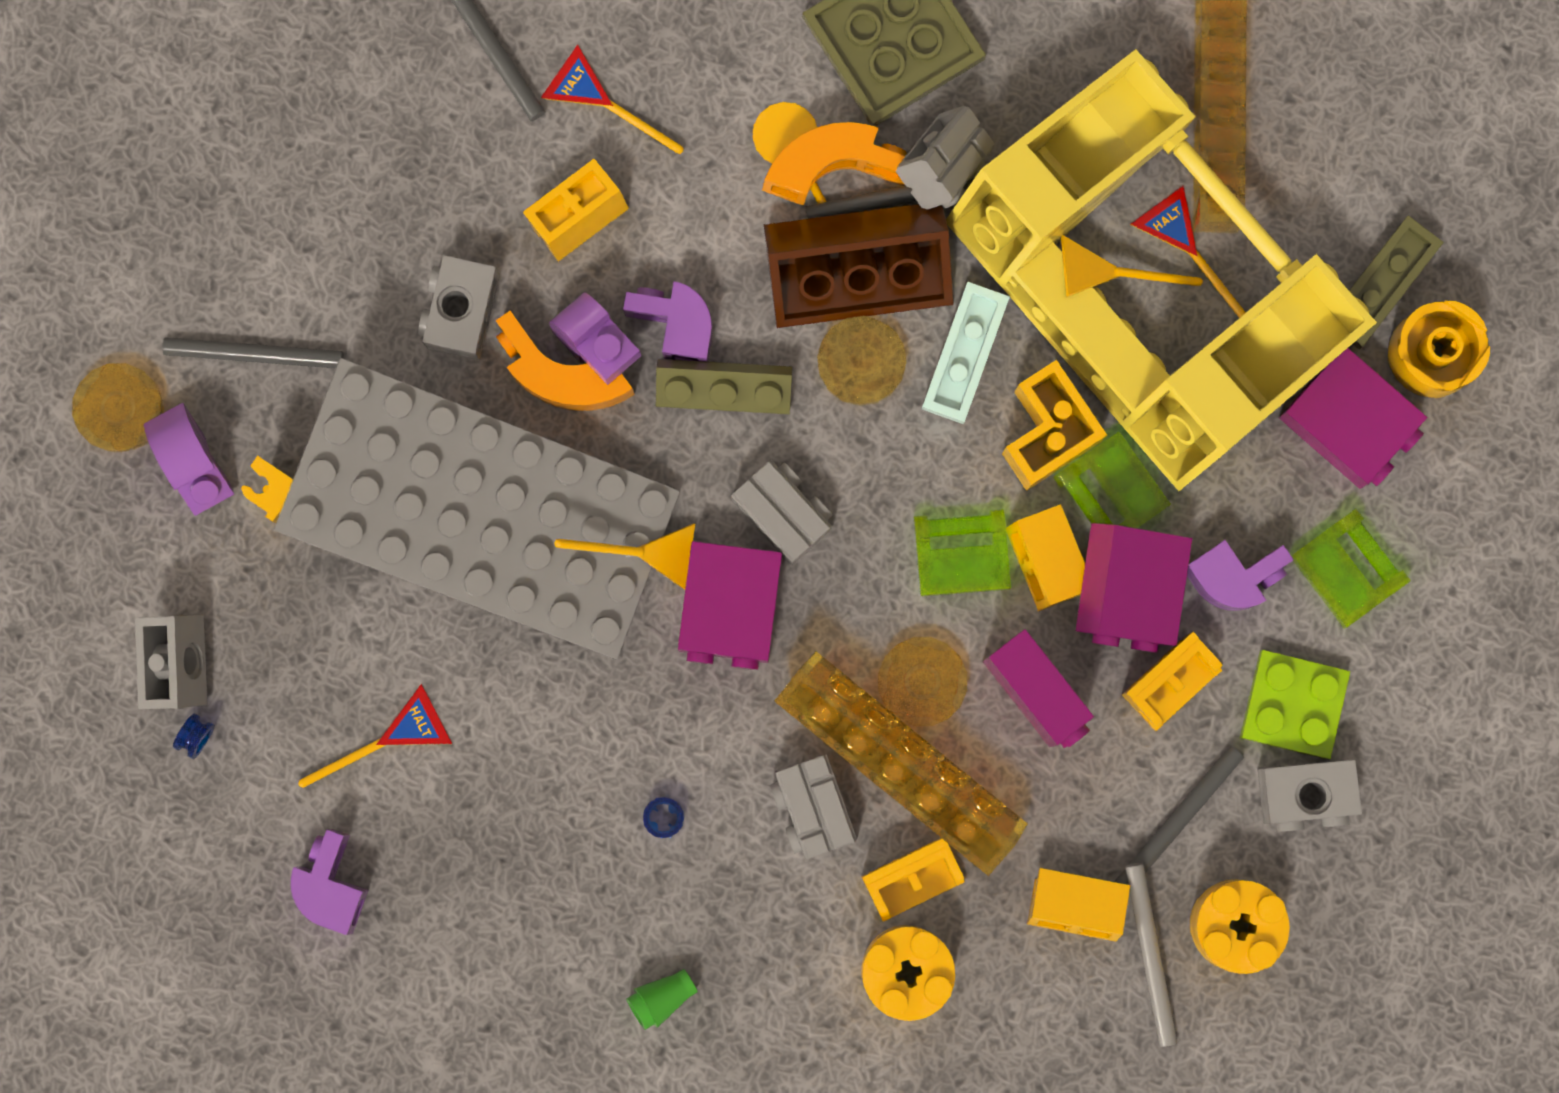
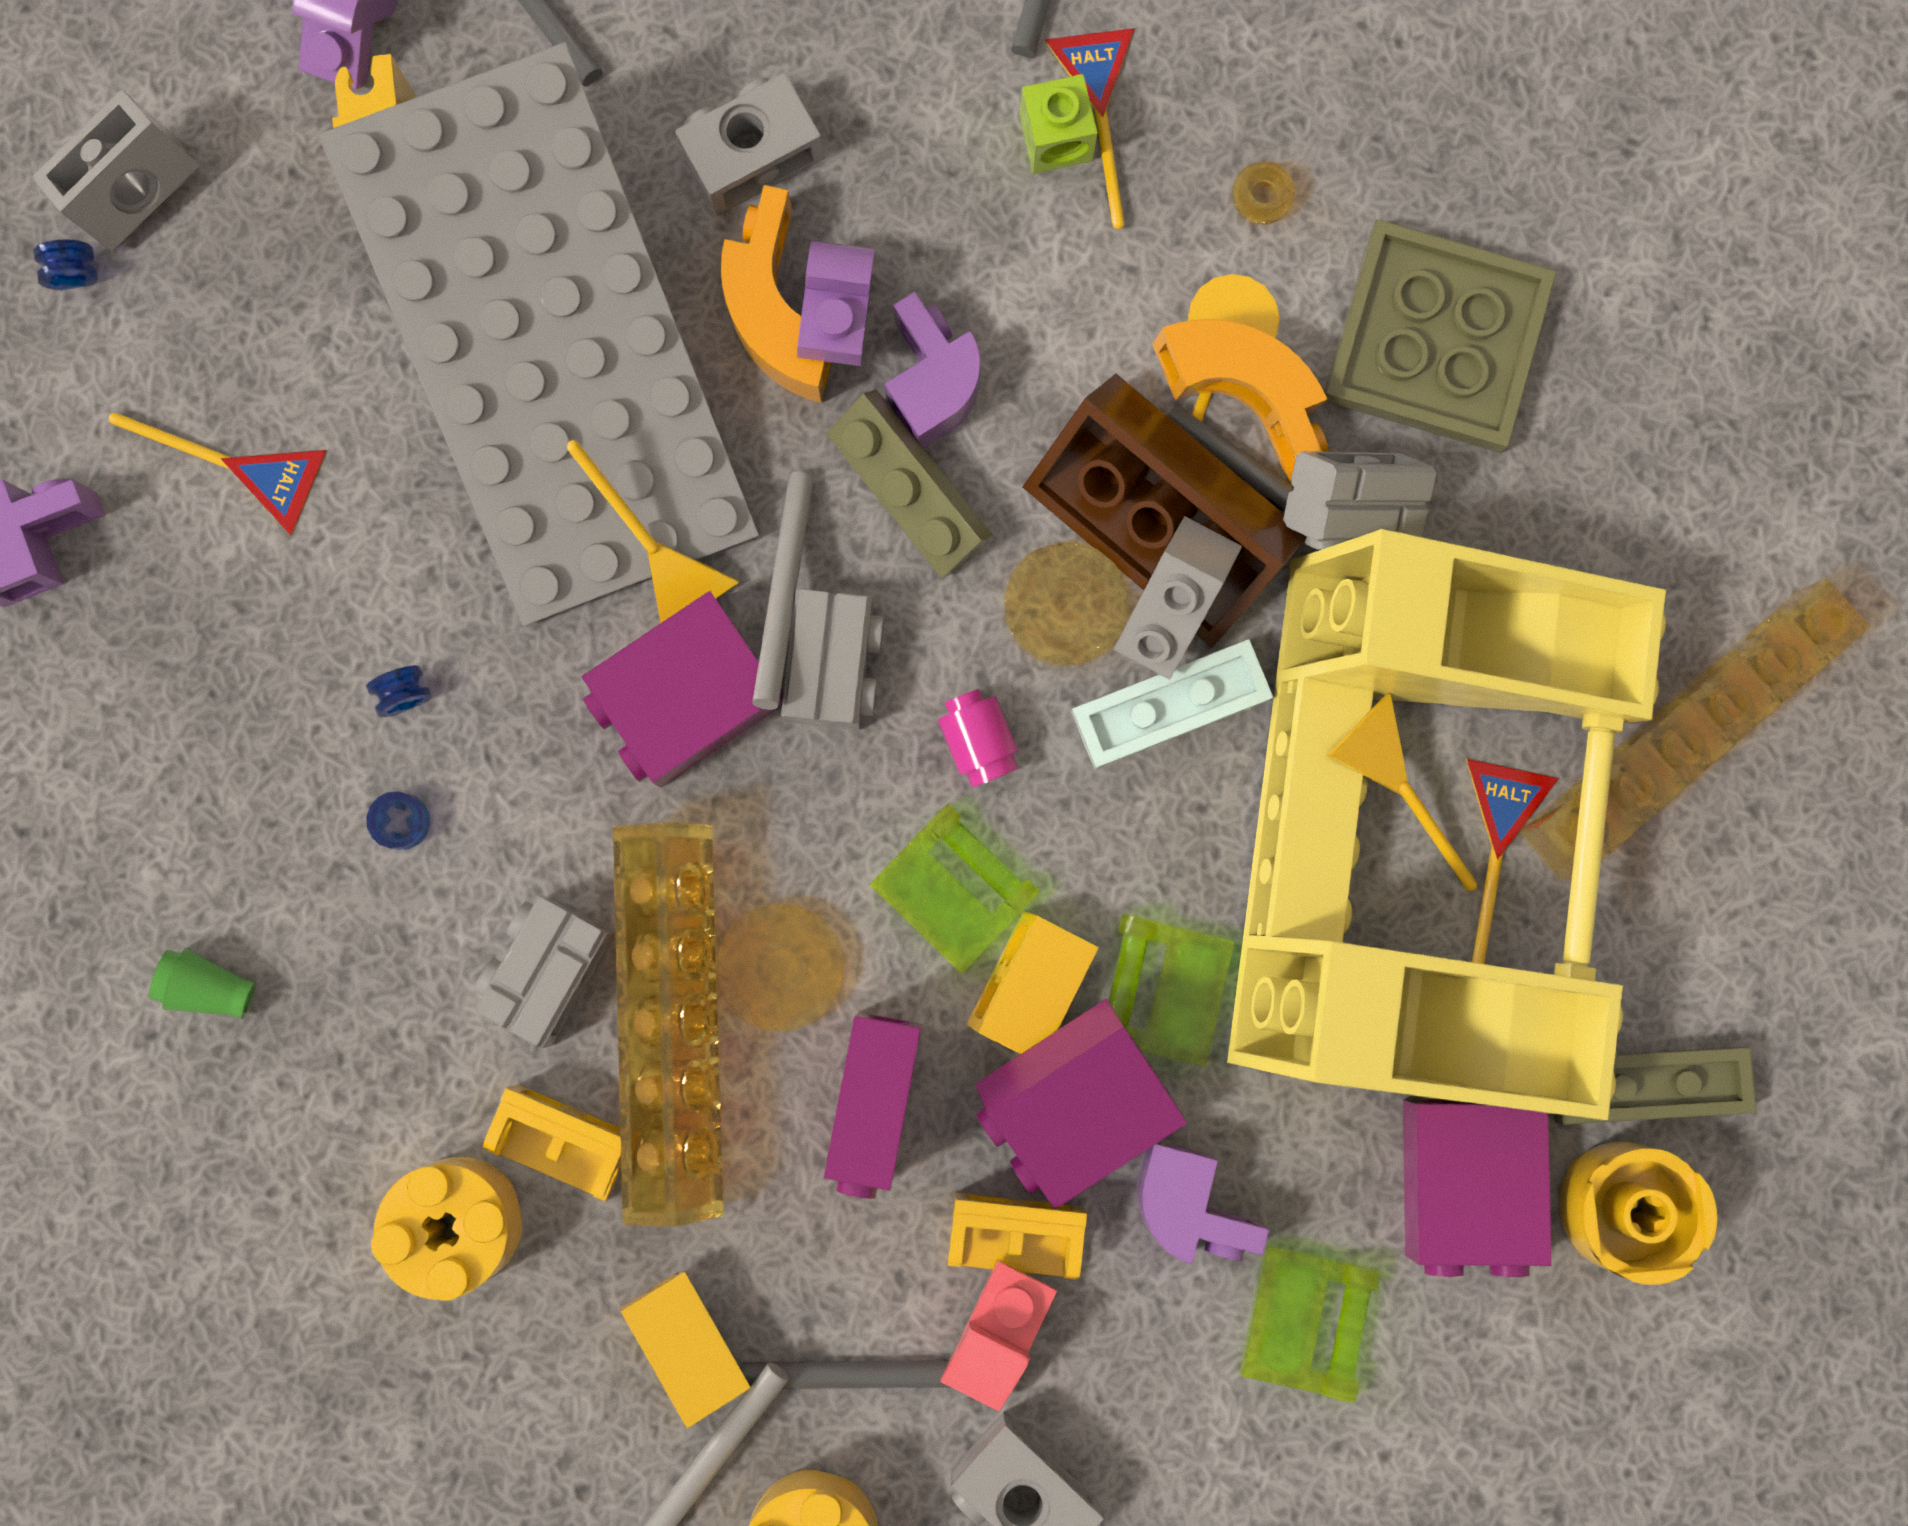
camera: 45 degrees right, 0 degrees up
(576, 209) = (957, 170): yellow hinge -> none
(594, 756) = (398, 691): none -> clear blue bush
(599, 134) = (1058, 123): none -> lime brick
(724, 502) = (783, 591): none -> light grey bar
(732, 44) = (1268, 175): none -> clear yellow plate
(893, 470) = (978, 737): none -> dark pink brick
(915, 299) = (1177, 597): none -> light grey brick
(1063, 427) = (1182, 879): yellow brick -> none
(1216, 734) = (999, 1336): none -> coral slope
(1295, 704) = (1109, 1393): lime plate -> none

